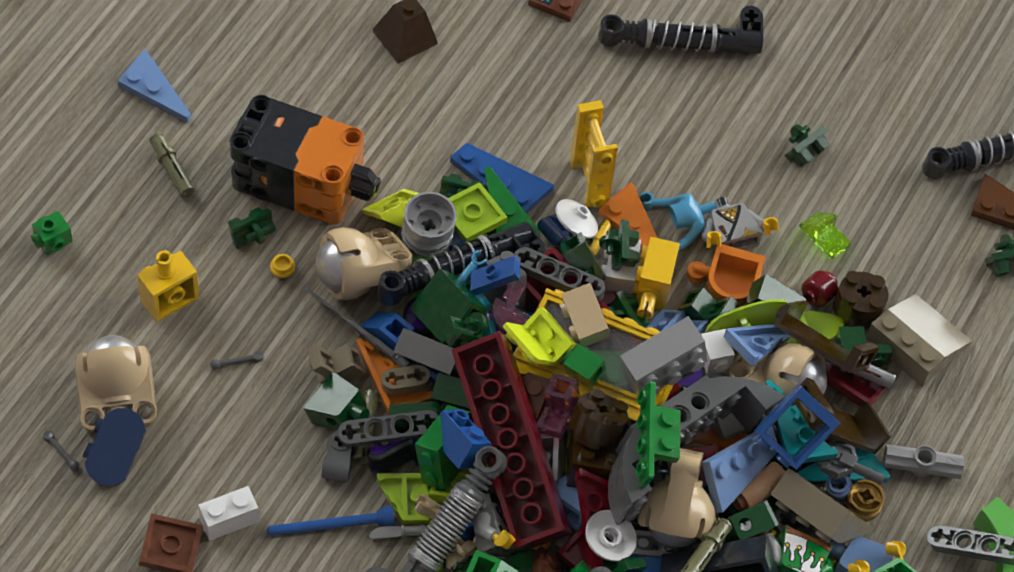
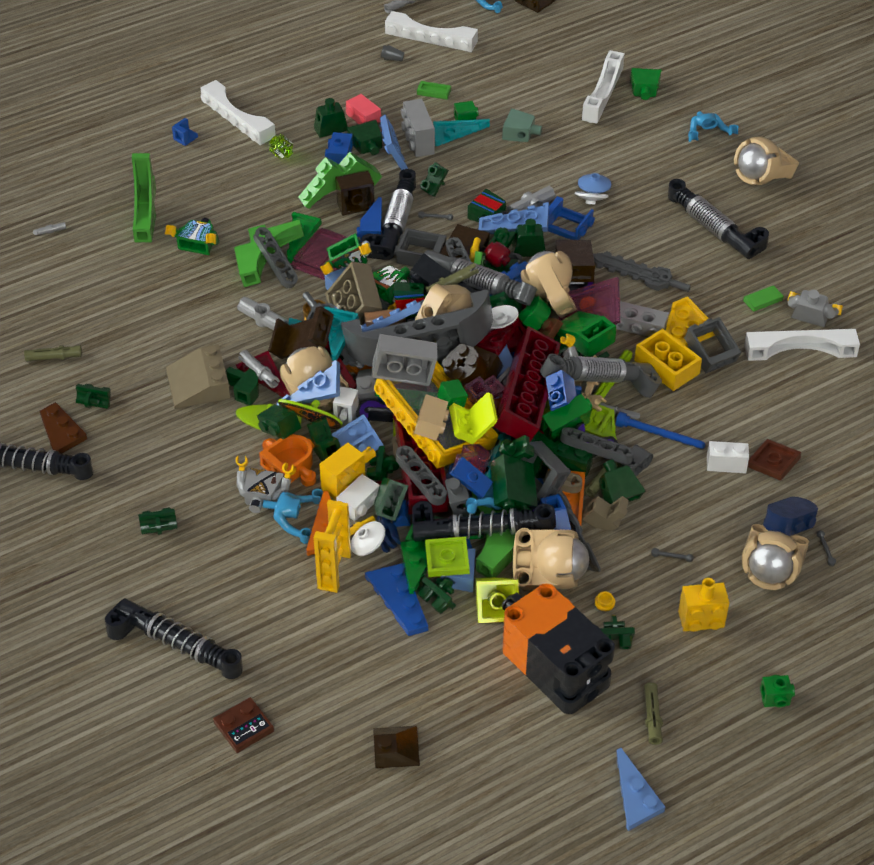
camera: 145 degrees left, 10 degrees down
(428, 224) = (489, 548): light grey wheel -> none
(617, 245) = (359, 487): dark green hips -> none
(658, 434) = (450, 306): green bracket -> none
(817, 438) = (347, 304): blue window -> none
(819, 288) = (236, 429): dark red head -> none
(825, 234) = (199, 464): clear neon green slope -> none
(854, 361) = (276, 364): dark brown panel -> none
(860, 299) = (218, 407): dark brown brick -> none

